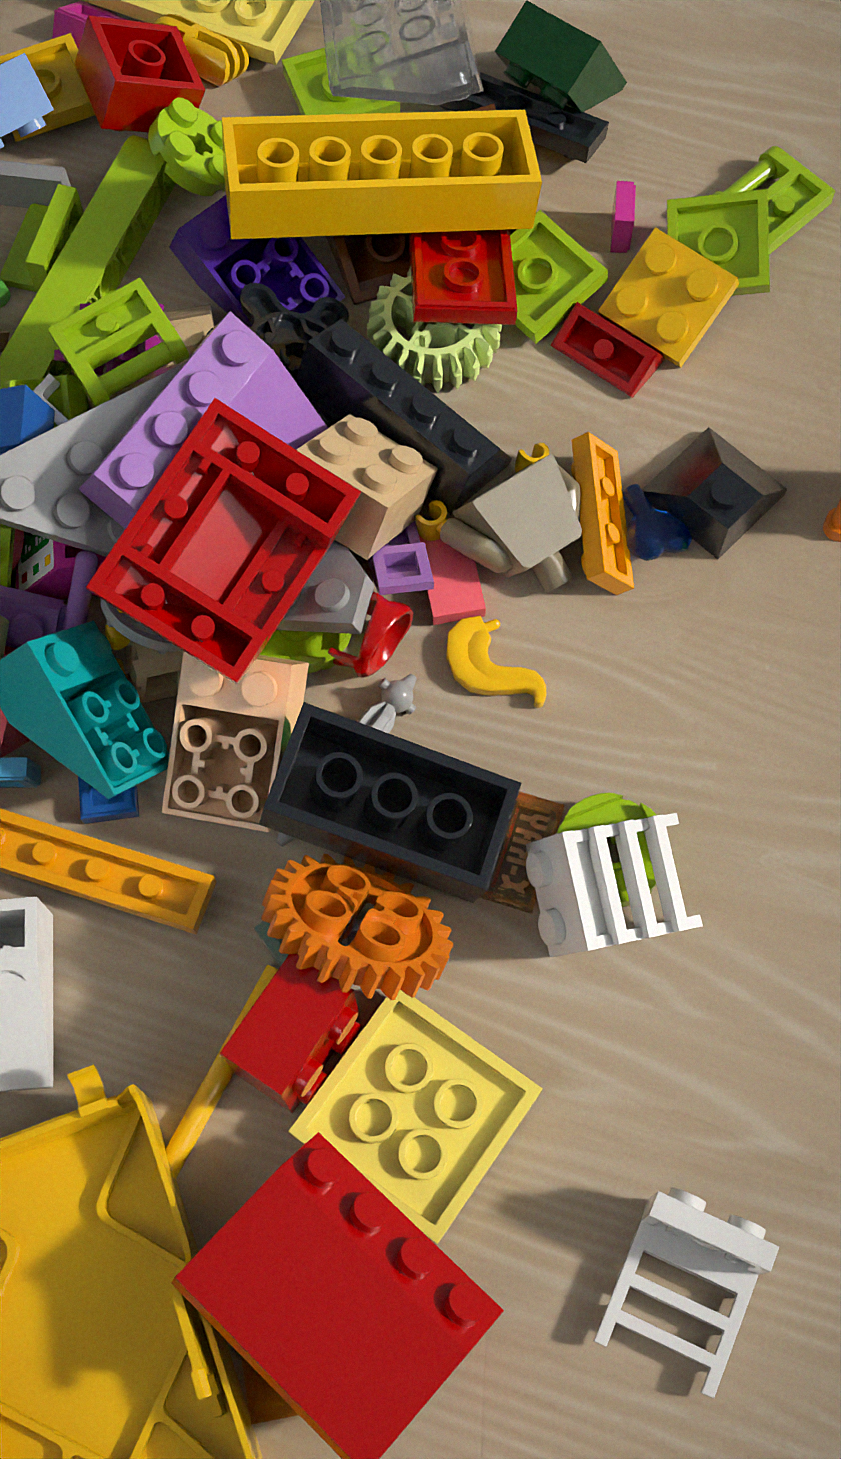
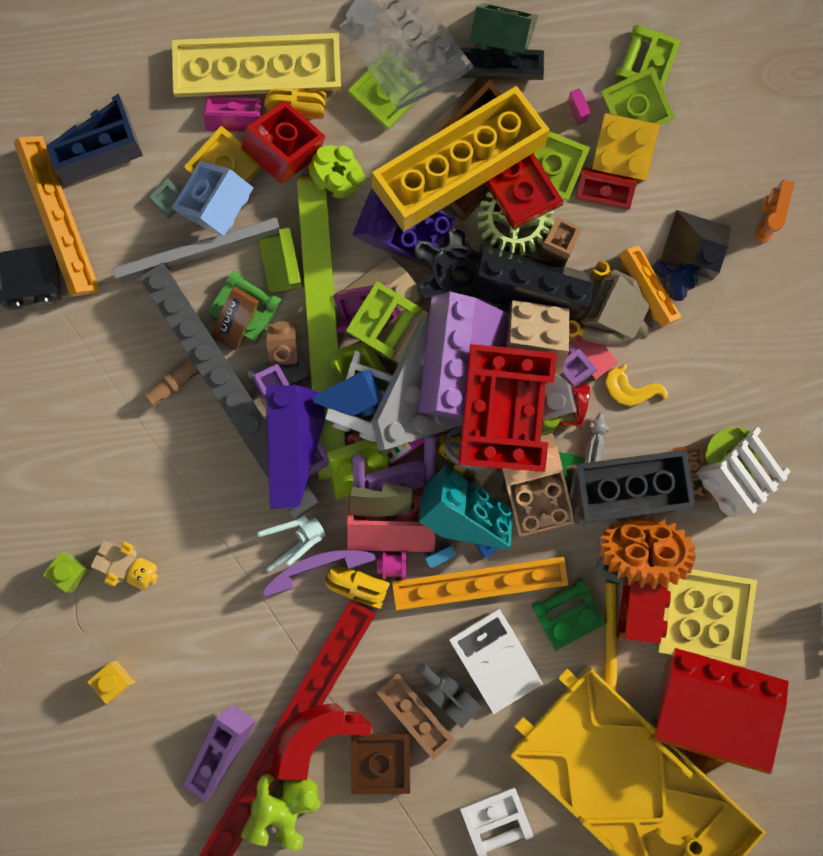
camera: 30 degrees left, 15 degrees up
(168, 1005) = (572, 623): none -> green plate
(485, 390) = (560, 242): none -> medium nougat slope

